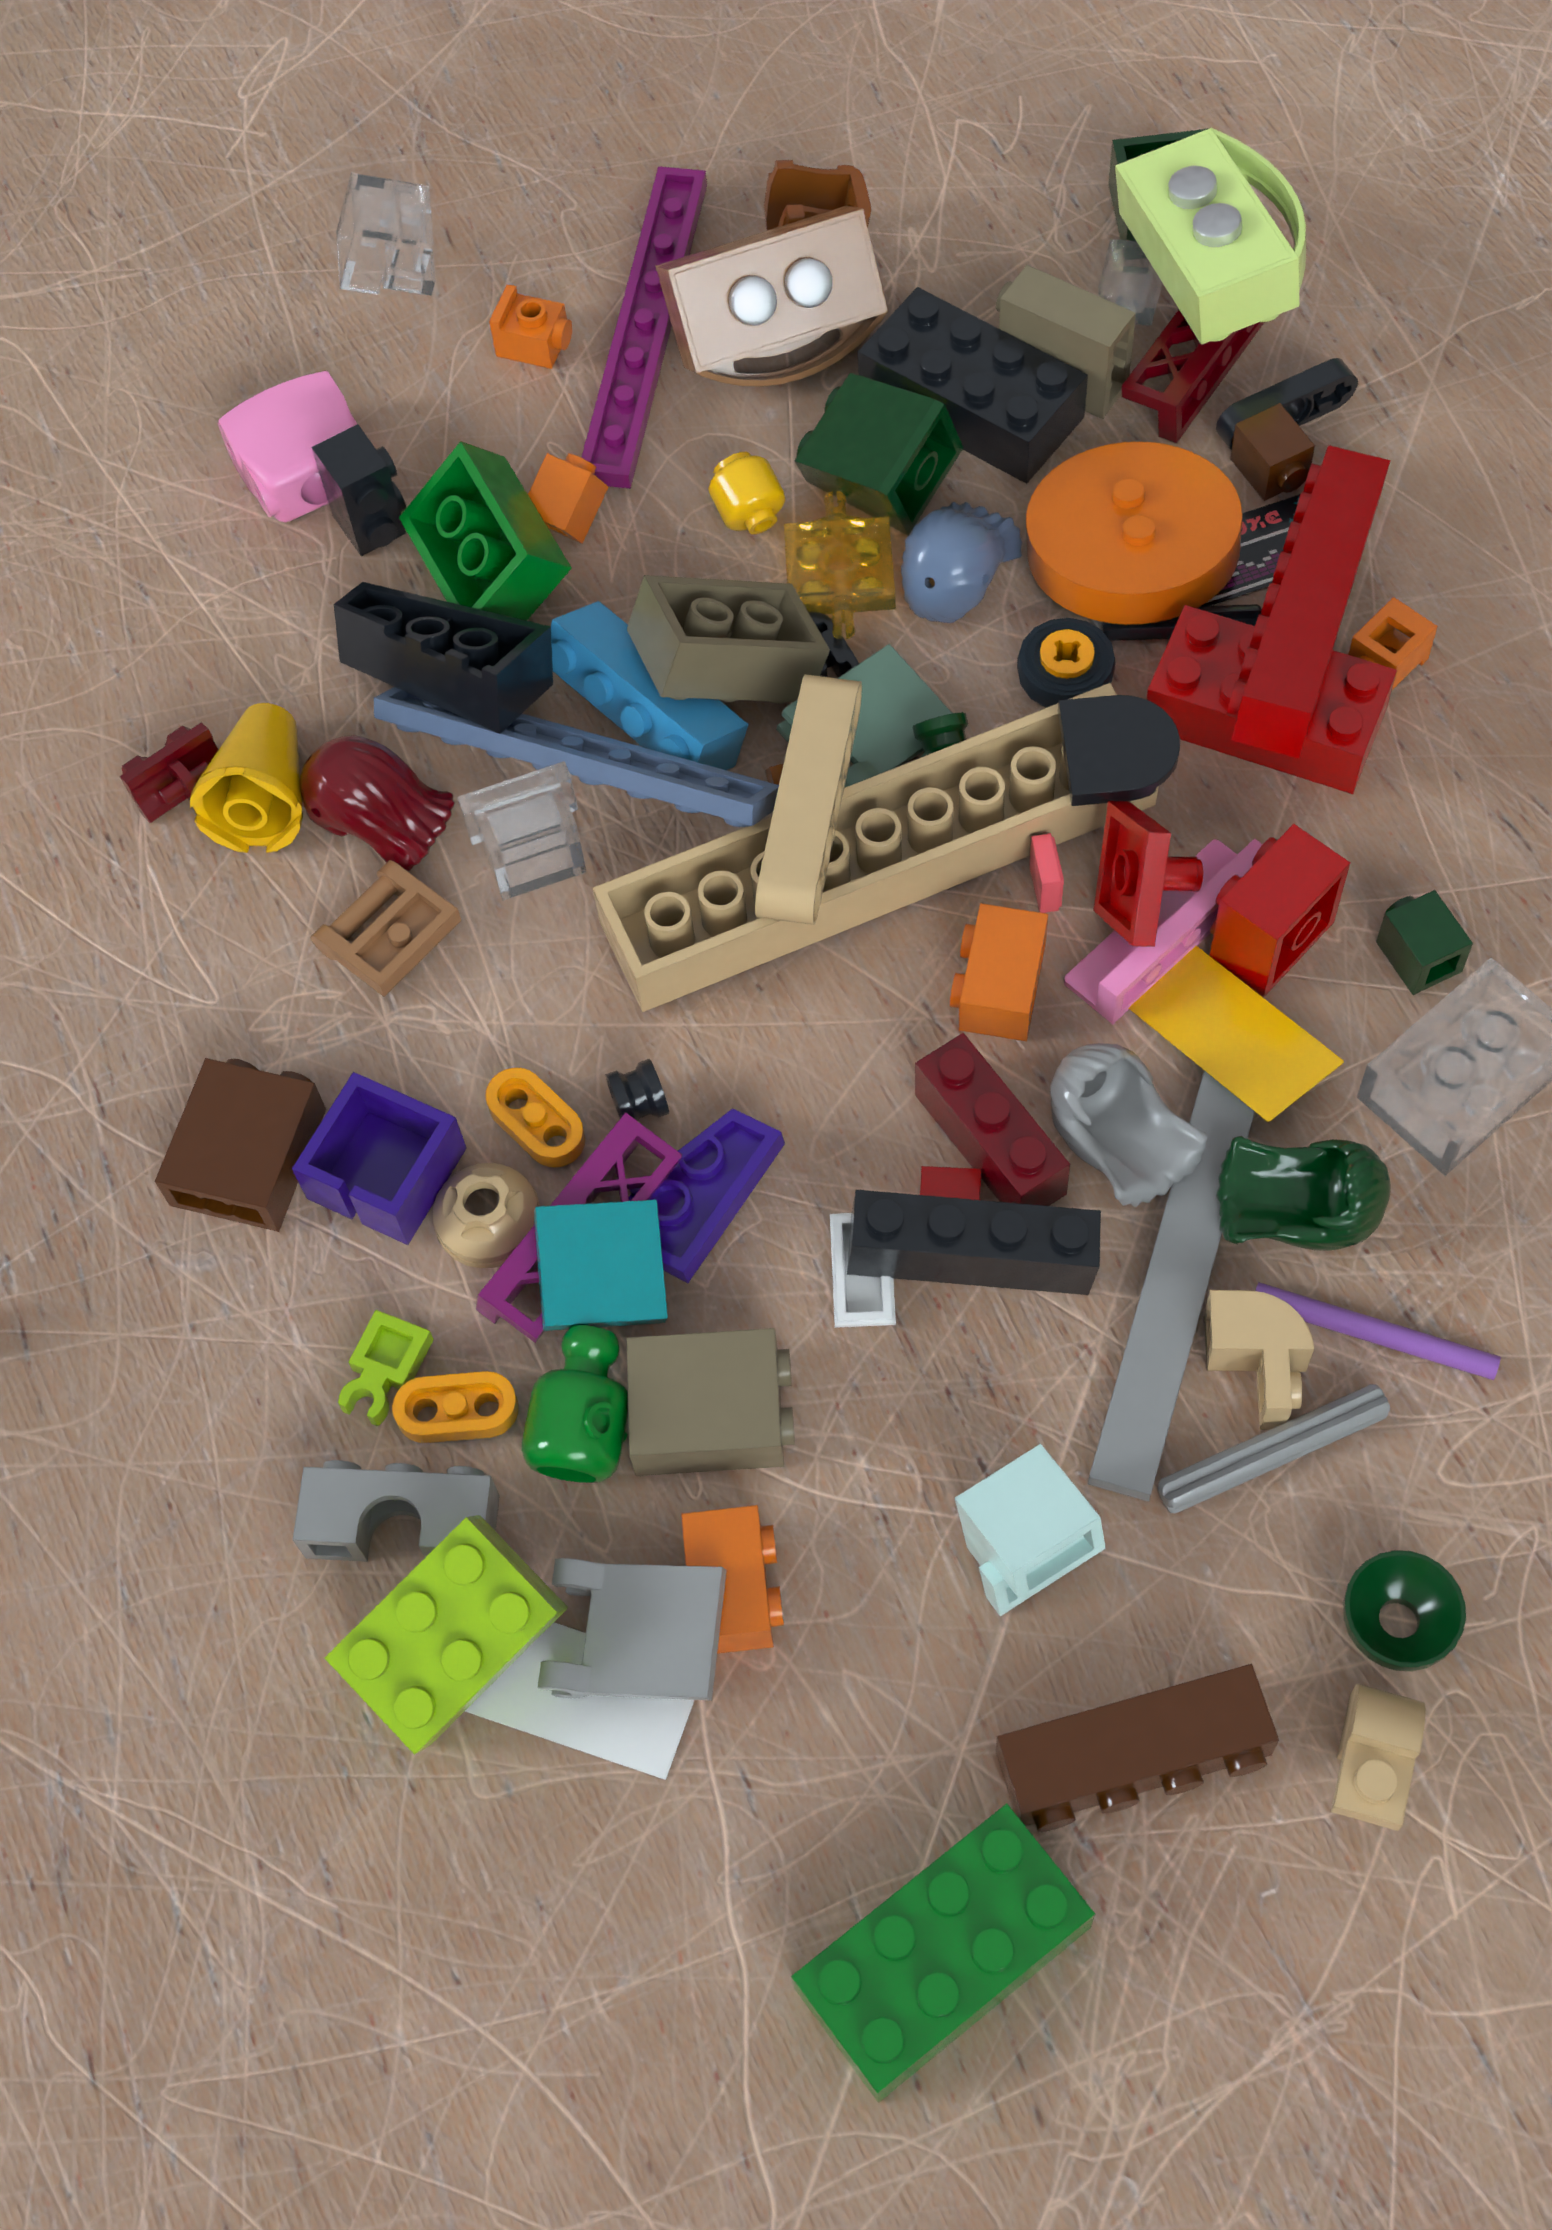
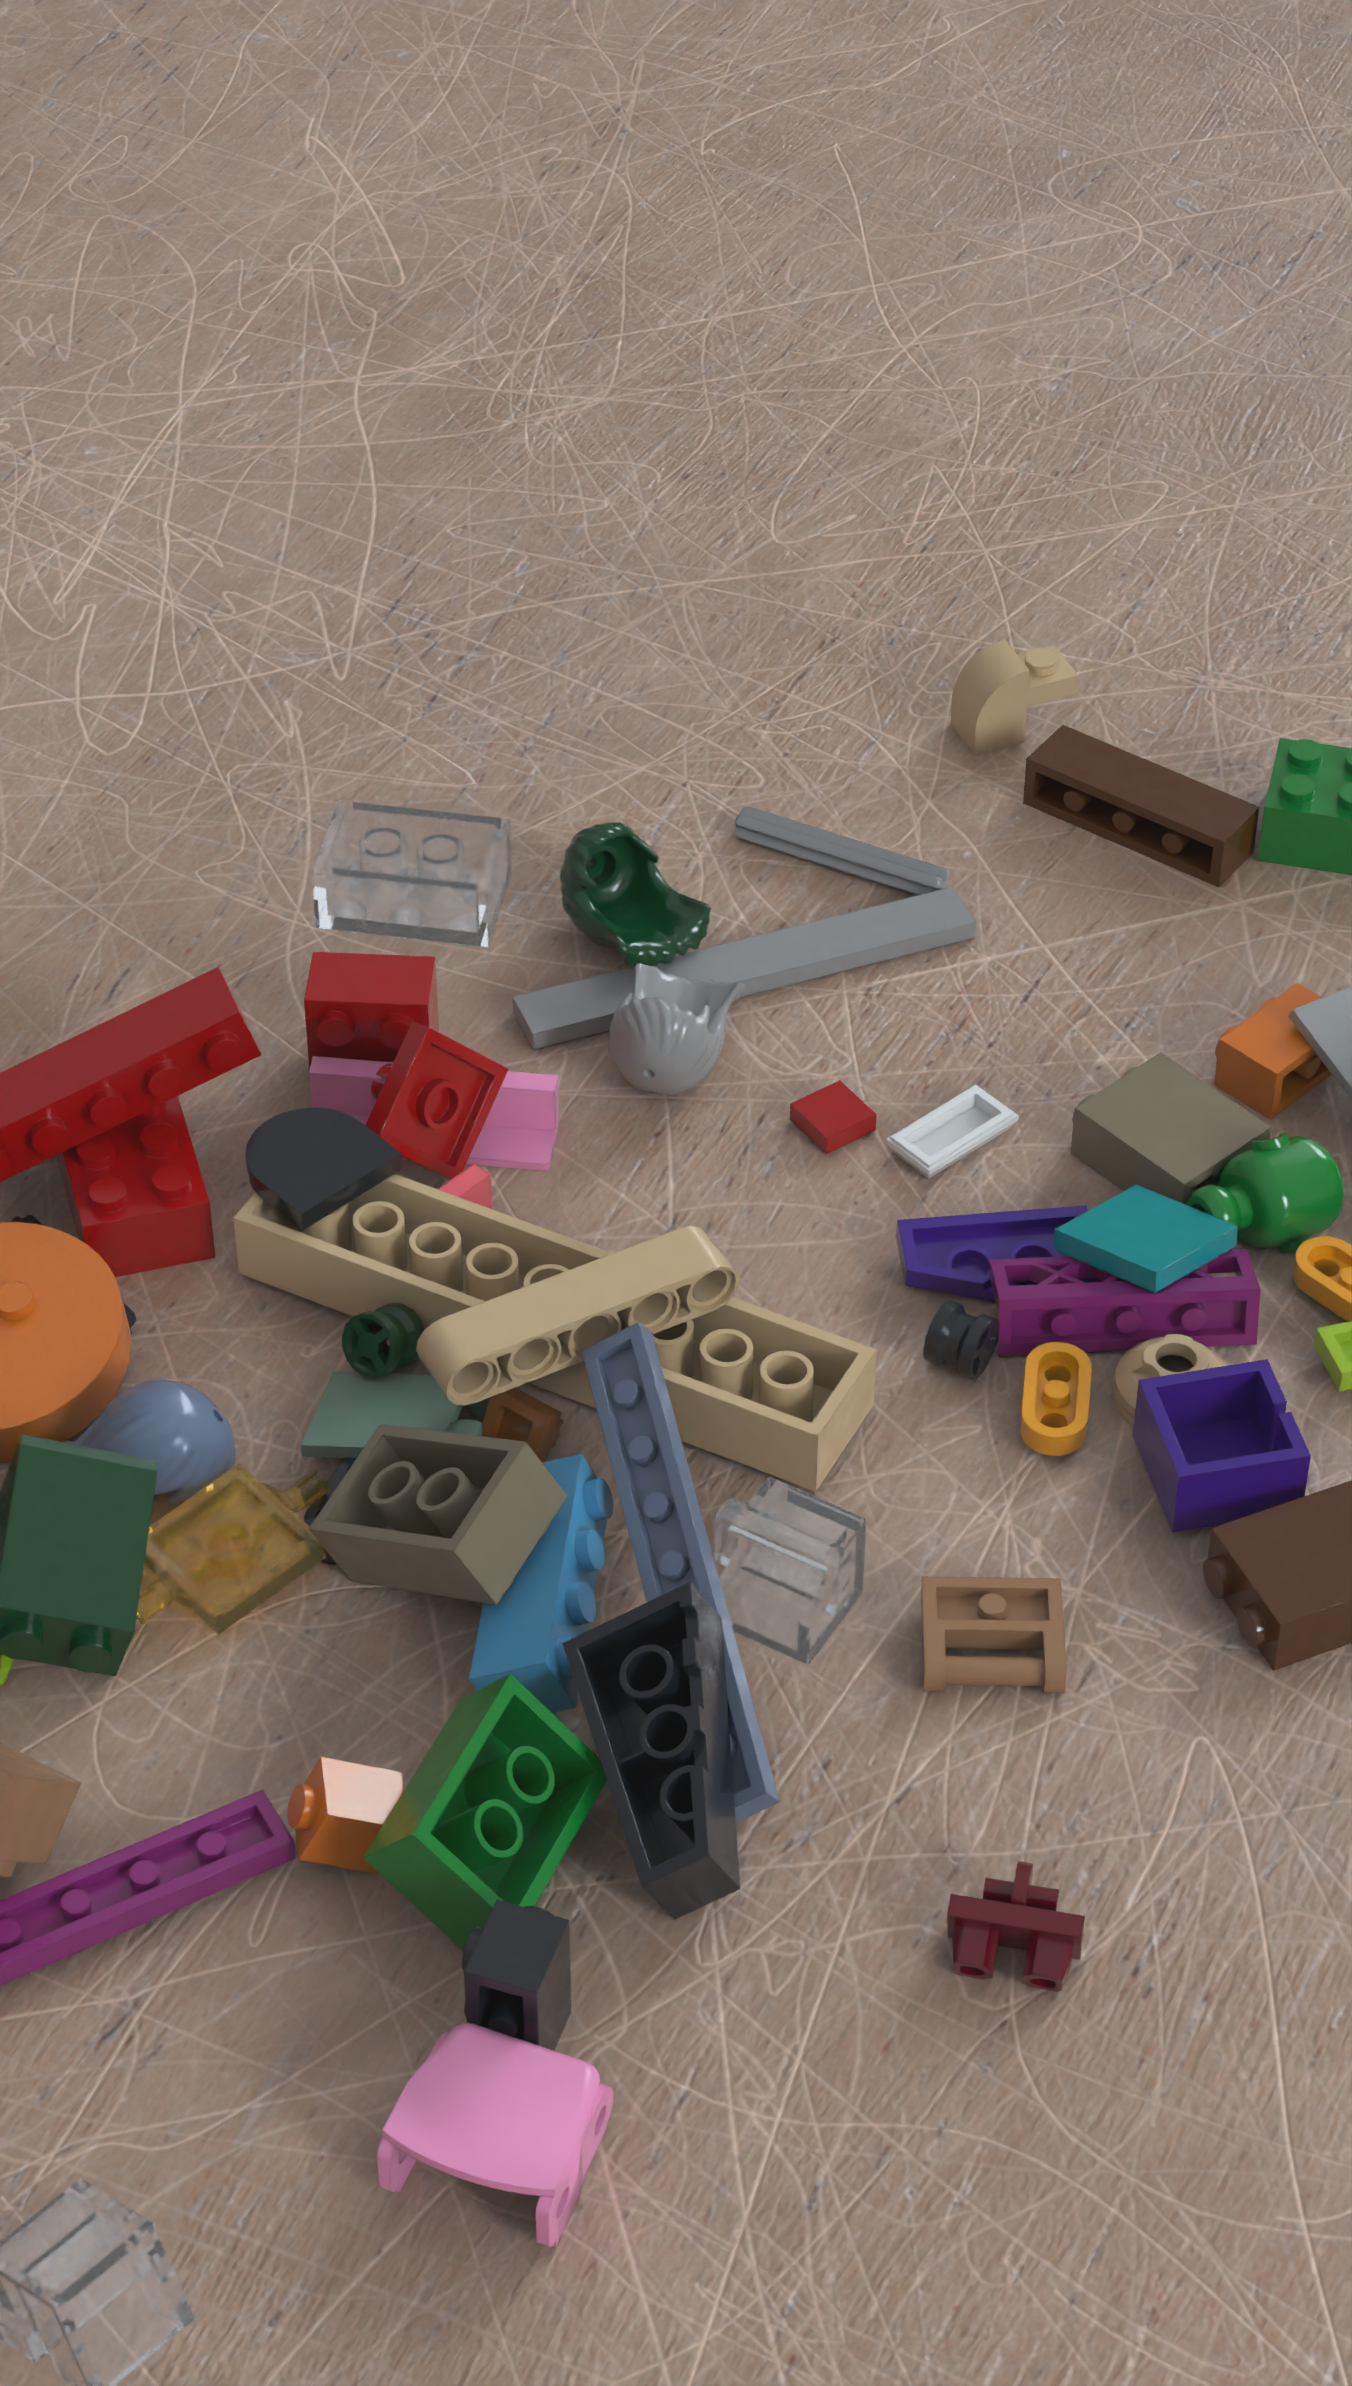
camera: 135 degrees left, 20 degrees down
(253, 783) = (952, 1832): yellow cone -> none
(375, 796) = (870, 1720): dark red piece -> none
(529, 328) = (105, 2030): orange brick -> none
(746, 493) = (197, 1676): yellow head -> none
(974, 1242) = (871, 1051): black brick -> none
(990, 1125) = (751, 1106): dark red brick -> none
(1001, 971) = (592, 1179): orange brick -> none
(1027, 1528) = (1065, 899): light aqua plate -> none
(1060, 639) = (201, 1321): black wheel -> none
(1235, 1034) = (515, 1001): yellow sticker -> none
(1260, 1335) = (778, 880): tan brick -> none
(1389, 1334) = (686, 852): medium lavender bar -> none
(1420, 1586) = (901, 721): dark green piece -> none
(1423, 941) = (289, 951): dark green brick -> none

